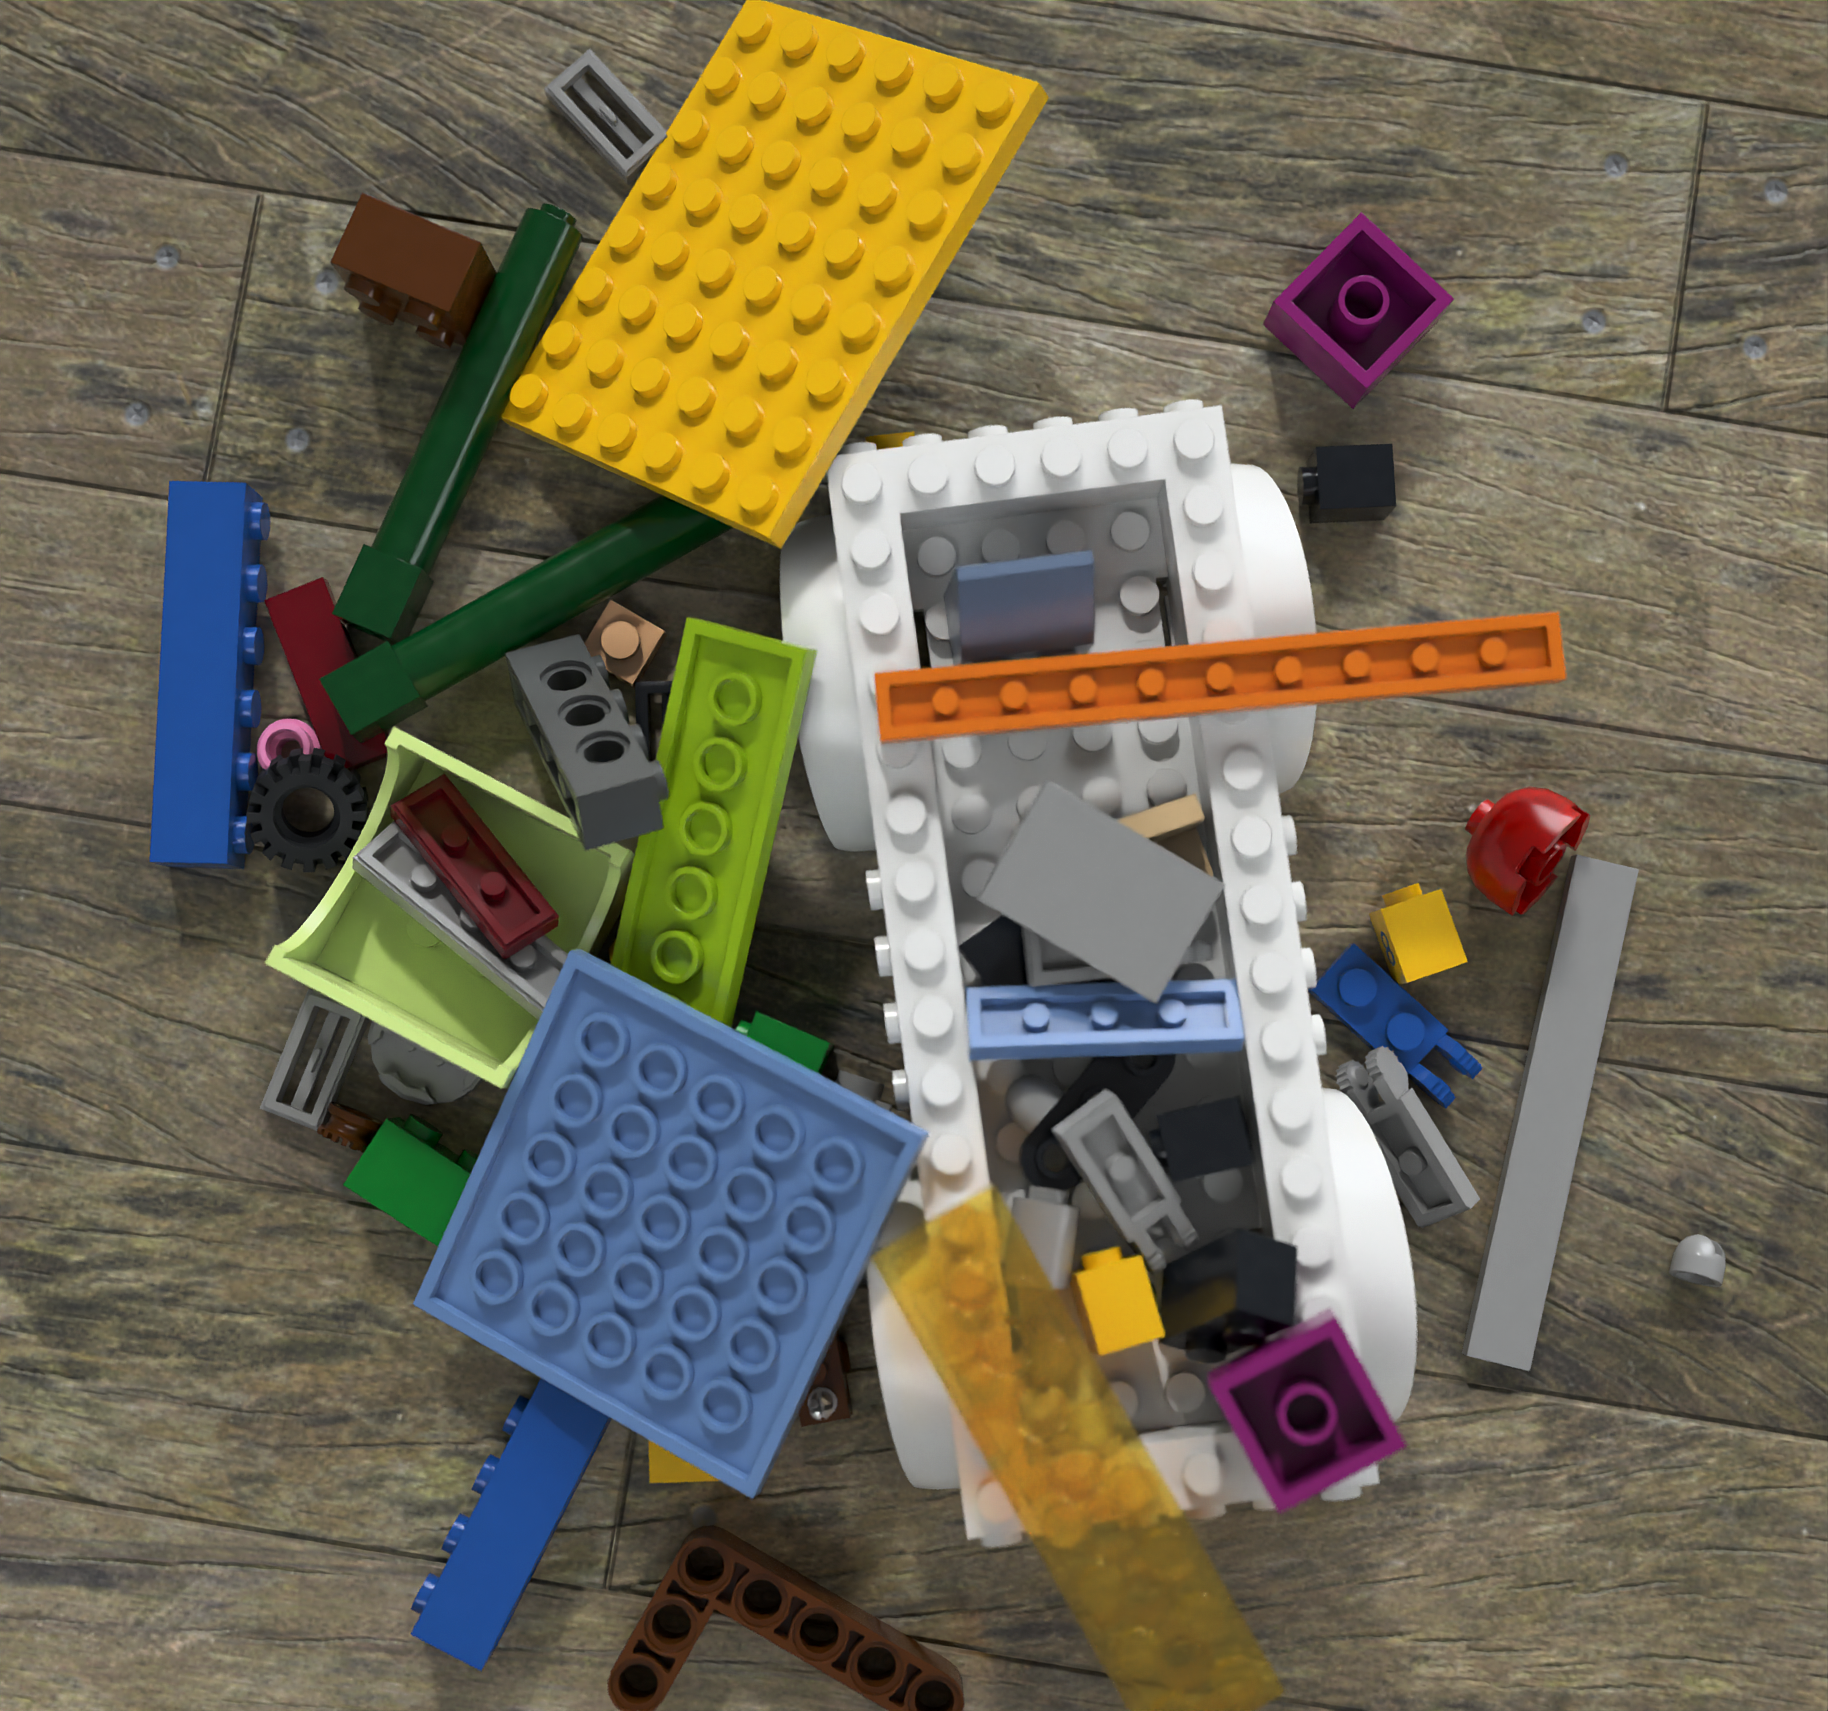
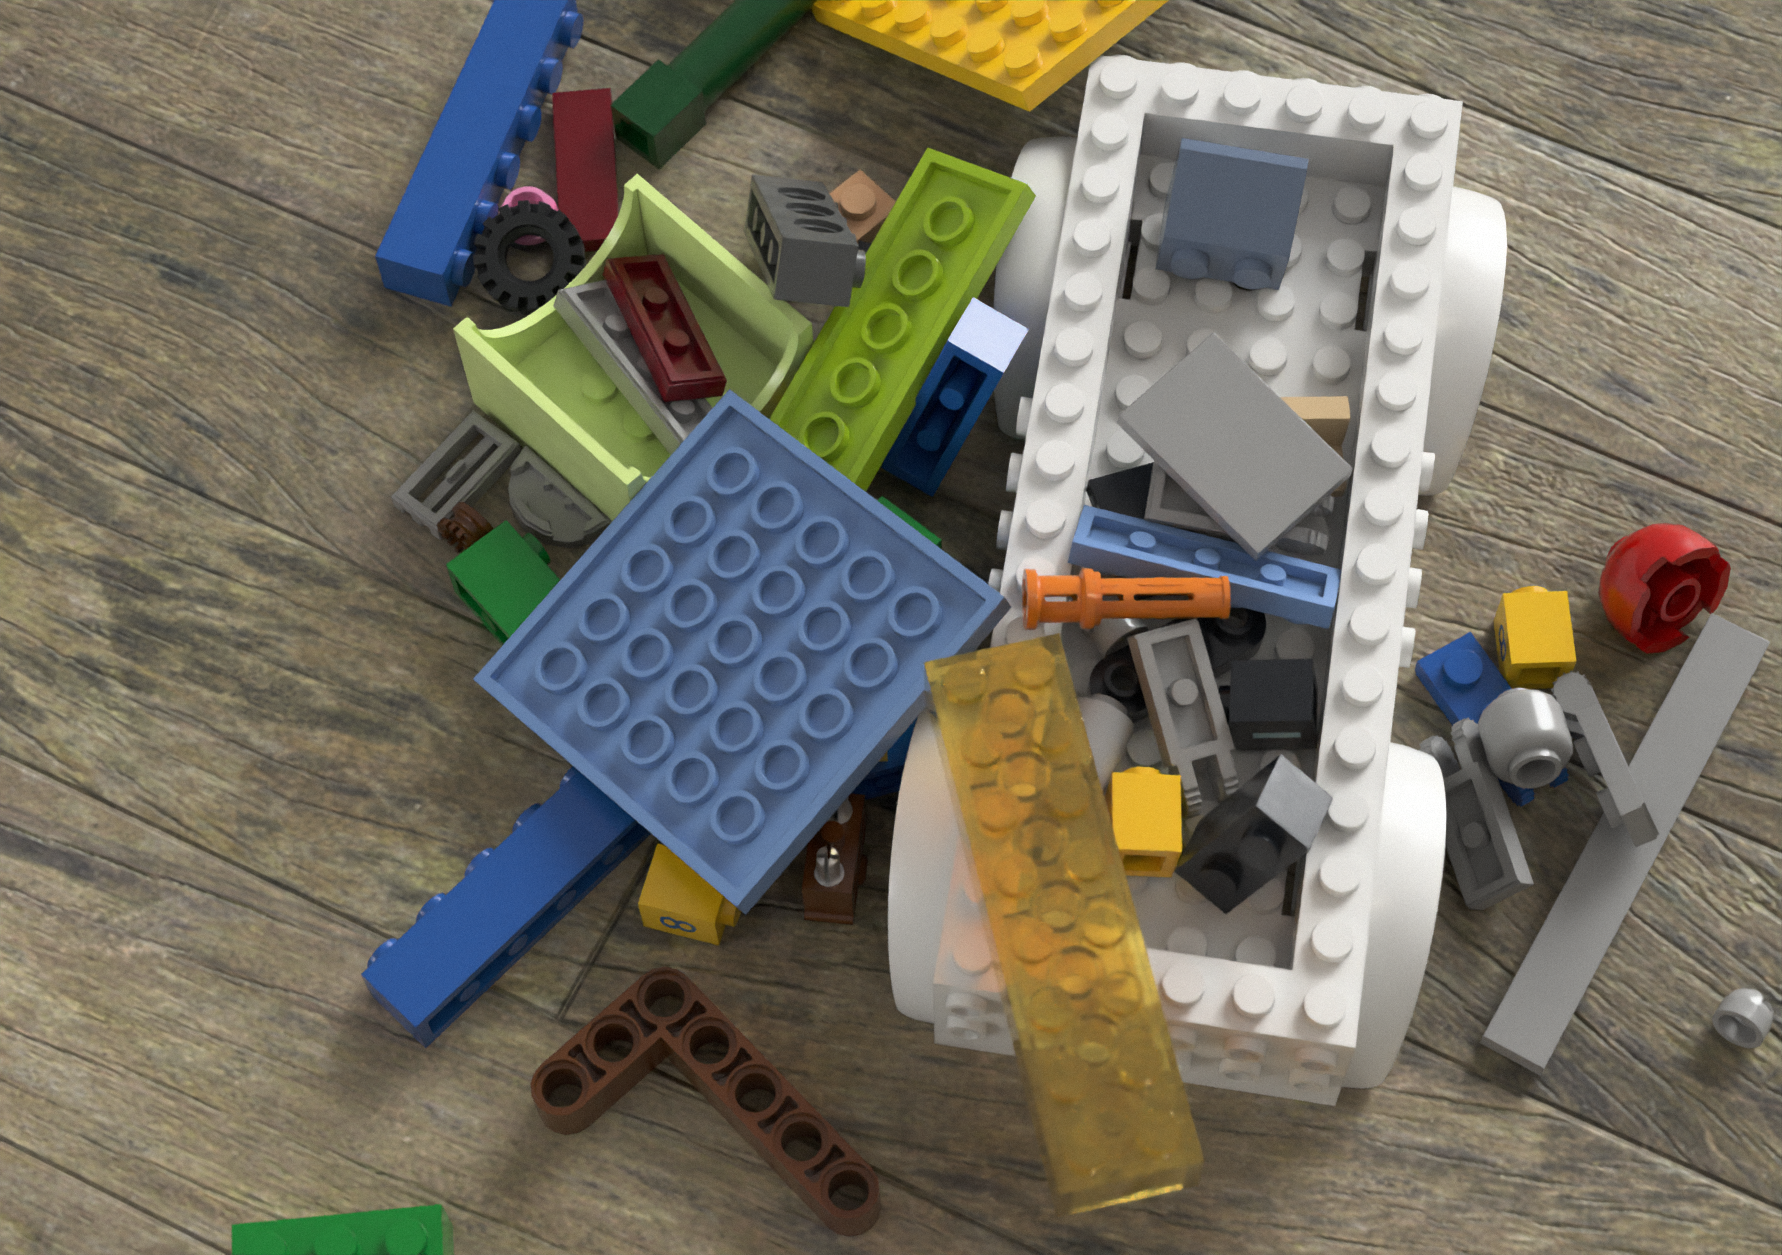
camera: 20 degrees right, 20 degrees down
(400, 678) = (794, 146): dark green brick -> none
(802, 866) = (954, 396): none -> blue brick
(1007, 1108) = (1206, 598): none -> orange pin
(1219, 677) = (1400, 298): orange plate -> none
(1305, 1410) = (1299, 923): magenta brick -> none
(1348, 483) = (1570, 244): black brick -> none
(1357, 310) = (1615, 104): magenta brick -> none
(1440, 1061) = (1525, 737): none -> light grey head
(1513, 1046) = (1602, 754): none -> light grey hinge

